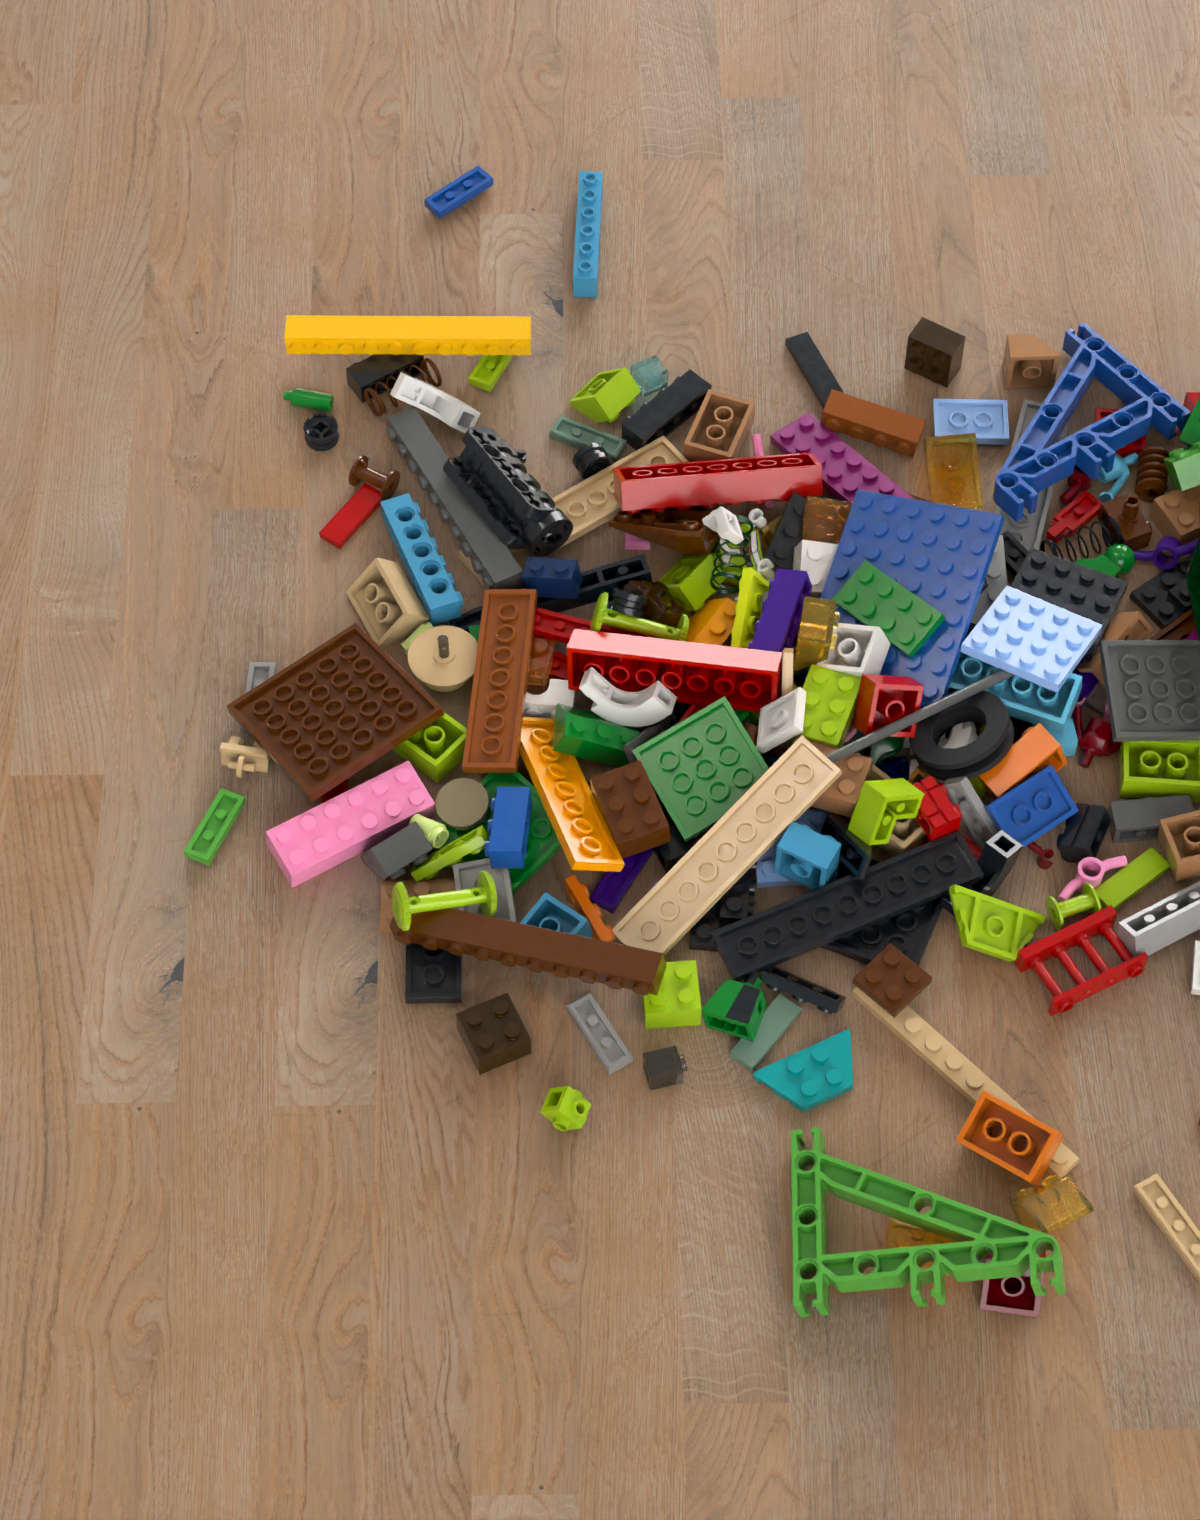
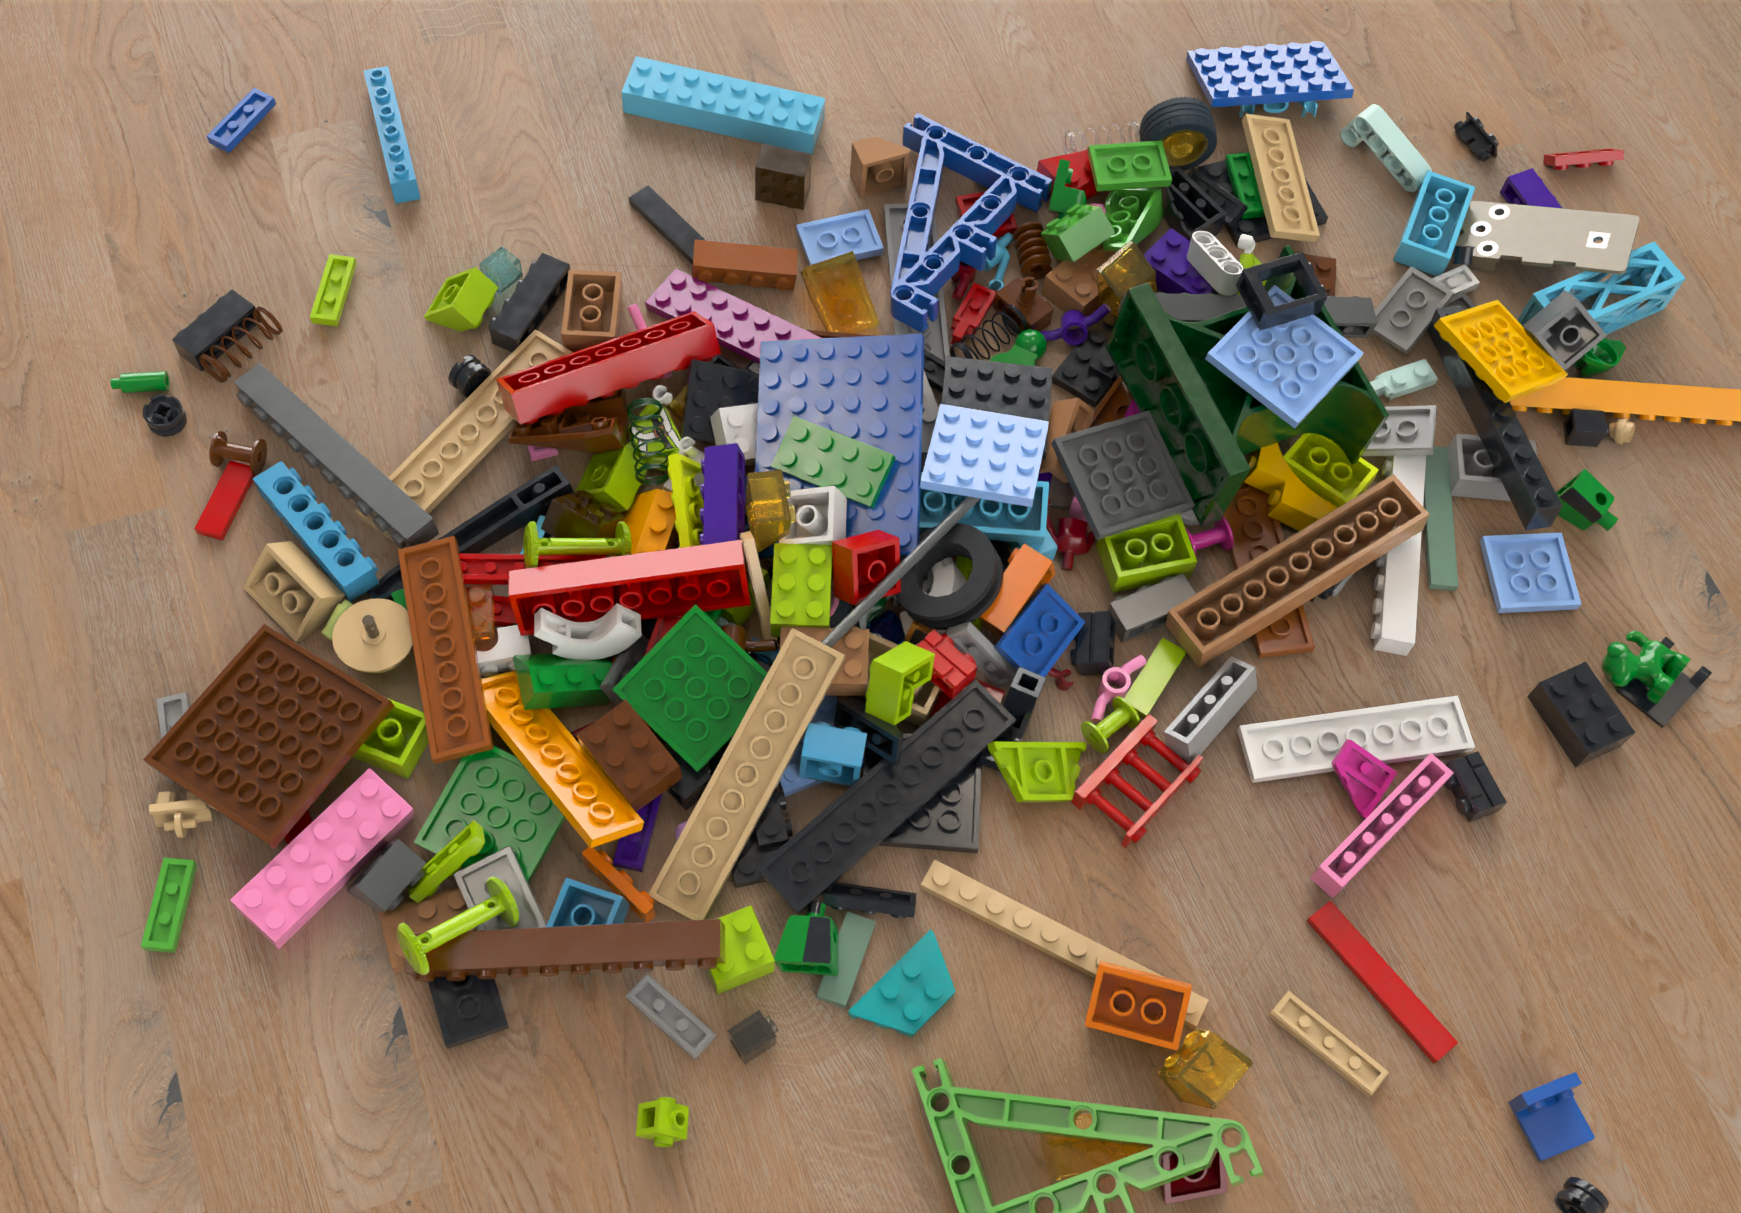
camera: 25 degrees left, 5 degrees up
(408, 335) = (228, 287): yellow brick -> none
(433, 830) = (420, 841): yellowish green cone -> none
(435, 402) = (283, 353): white arch -> none
(462, 803) = (443, 799): dark tan tile -> none
(493, 1033) = (556, 1056): dark brown brick -> none
(505, 495) = (388, 439): black piece -> none
(509, 827) = (504, 815): blue brick -> none
(553, 577) = (467, 516): dark blue brick -> none
(580, 435) = (452, 350): sand green tile -> none
(627, 602) = (557, 525): black wheel -> none
(725, 524) = (635, 412): white bracket -> none
(781, 720) = (762, 613): white tile -> none
(825, 519) = (735, 380): clear orange plate -> none
(892, 980) = (959, 862): reddish brown plate -> none
(902, 275) = (723, 105): none -> medium azure brick

